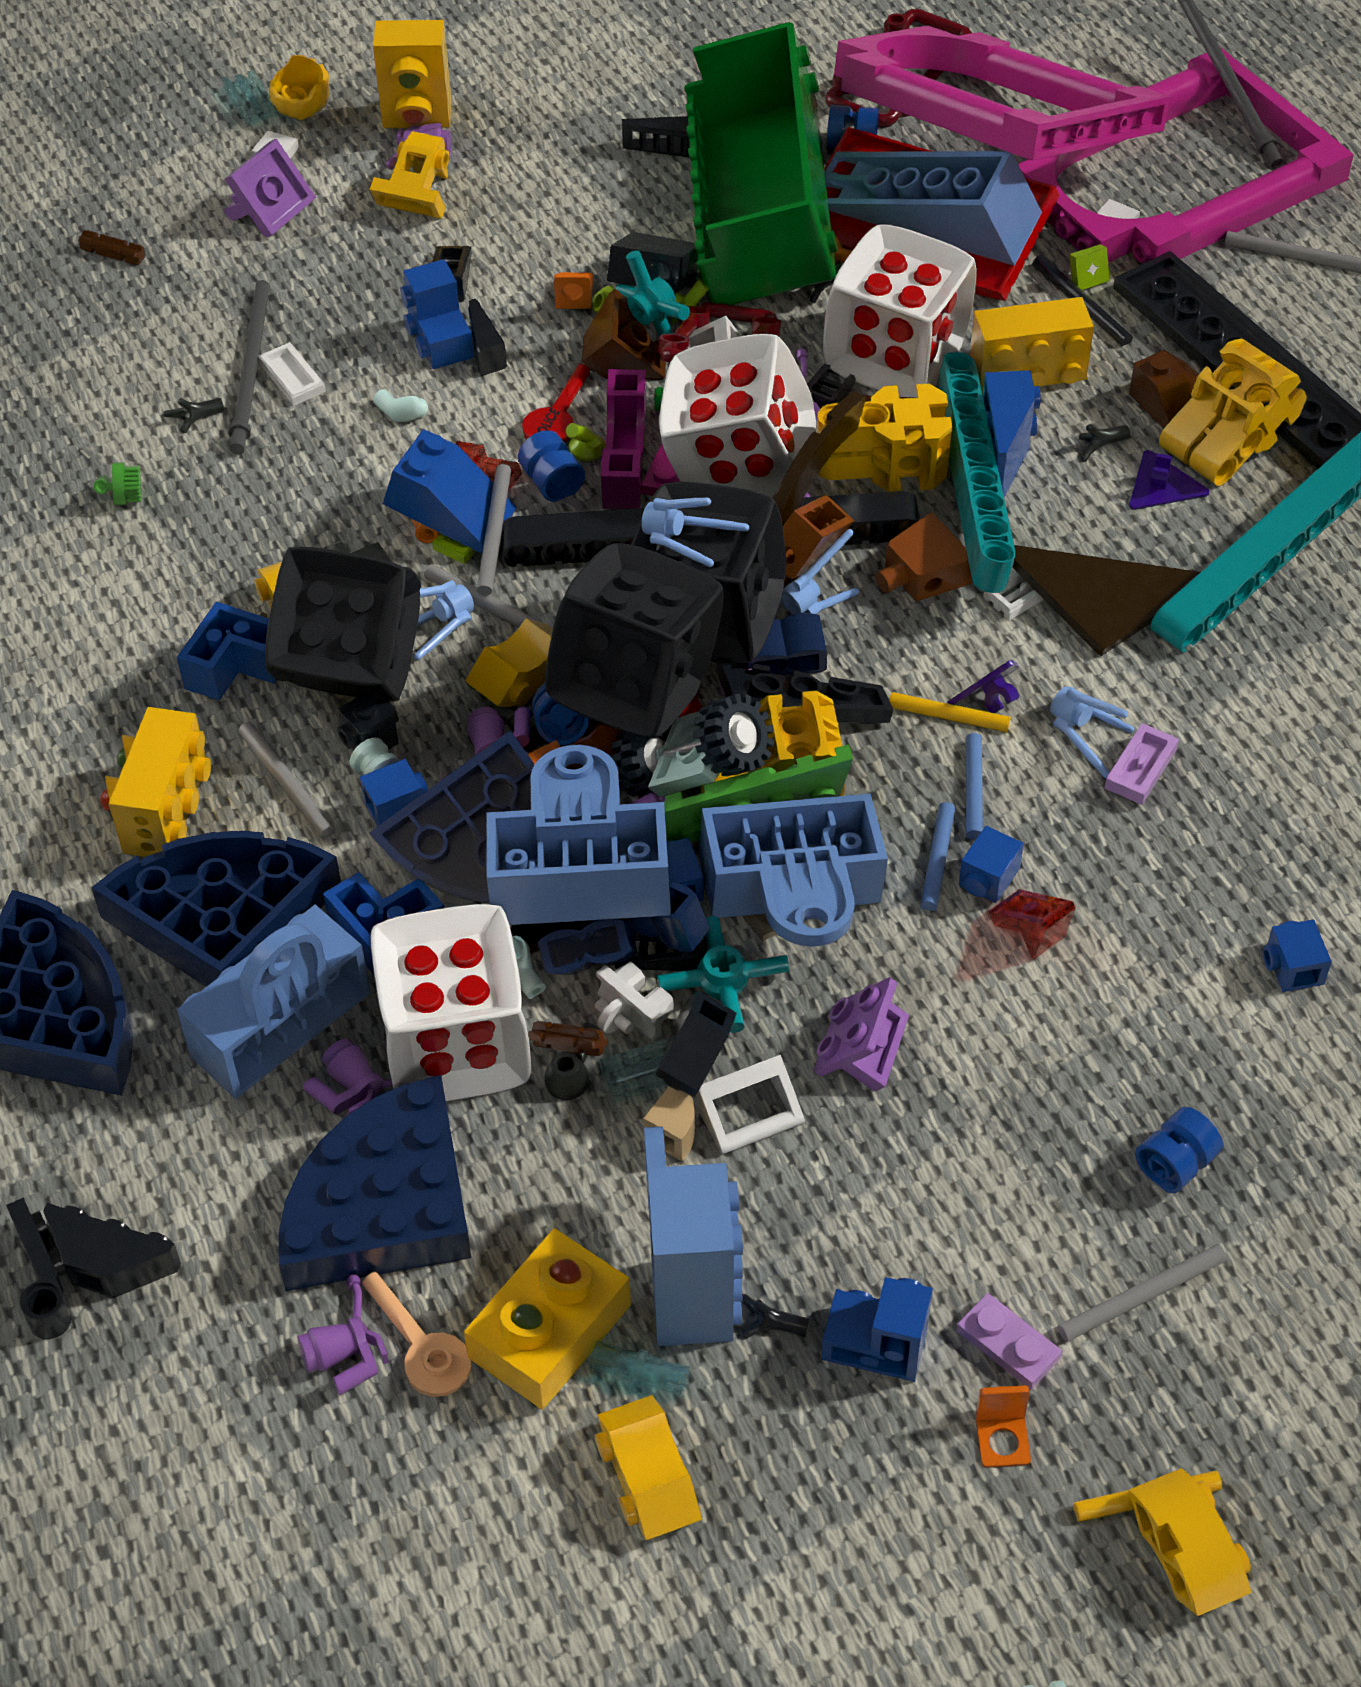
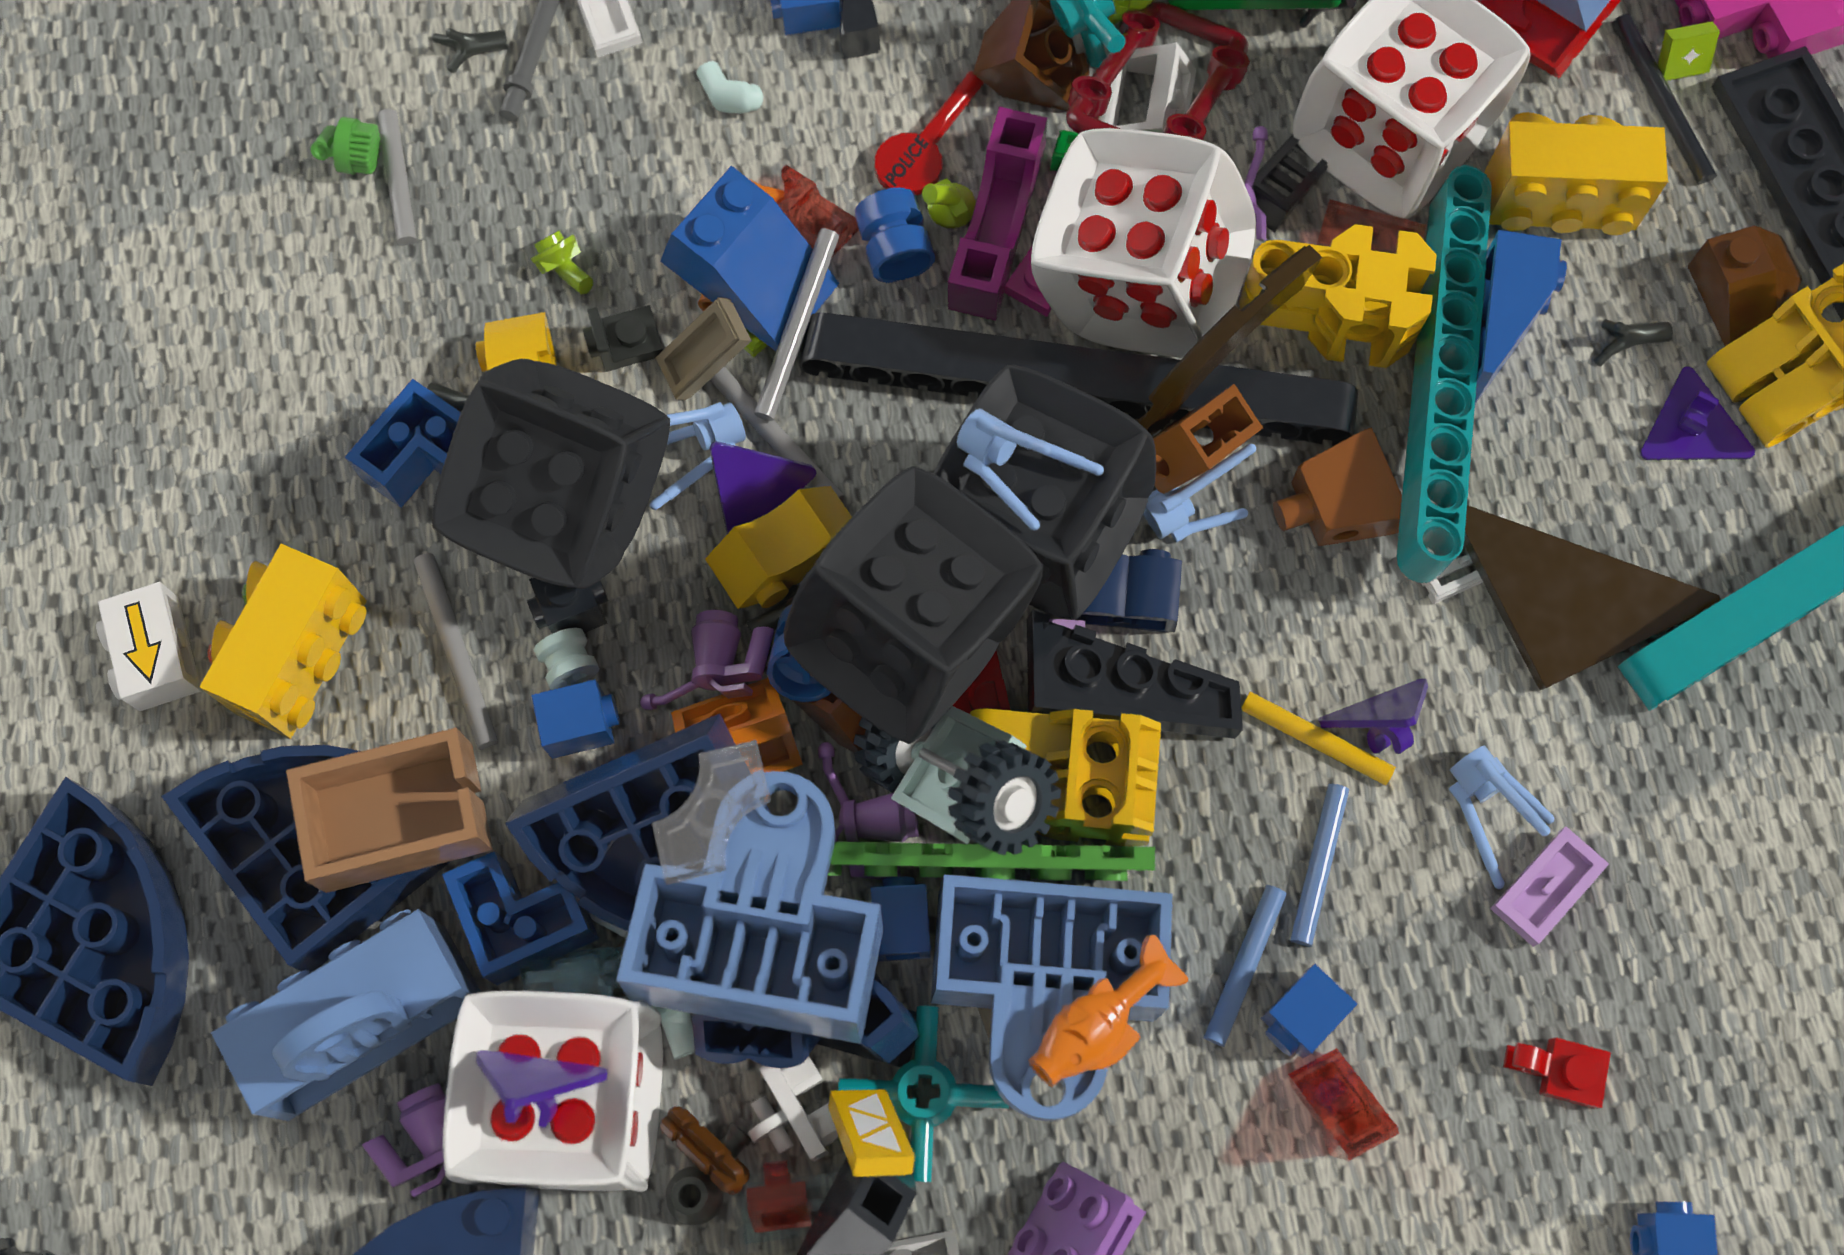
camera: 15 degrees right, 20 degrees up
(47, 816) = (147, 647): none -> white brick
(160, 502) = (397, 177): none -> light grey bar
(279, 844) = (388, 810): none -> medium nougat piece
(298, 523) = (556, 253): none -> lime plate
(432, 549) = (703, 348): none -> dark tan tile
(440, 950) = (535, 1080): none -> dark purple piece
(486, 623) = (754, 481): none -> dark purple piece
(532, 760) = (696, 835): none -> clear tile
(634, 1052) = (779, 1202): none -> clear red tile
(692, 980) = (870, 1133): none -> yellow tile
(837, 871) = (1094, 1027): none -> orange animal
(1188, 871) = (1567, 1070): none -> red plate

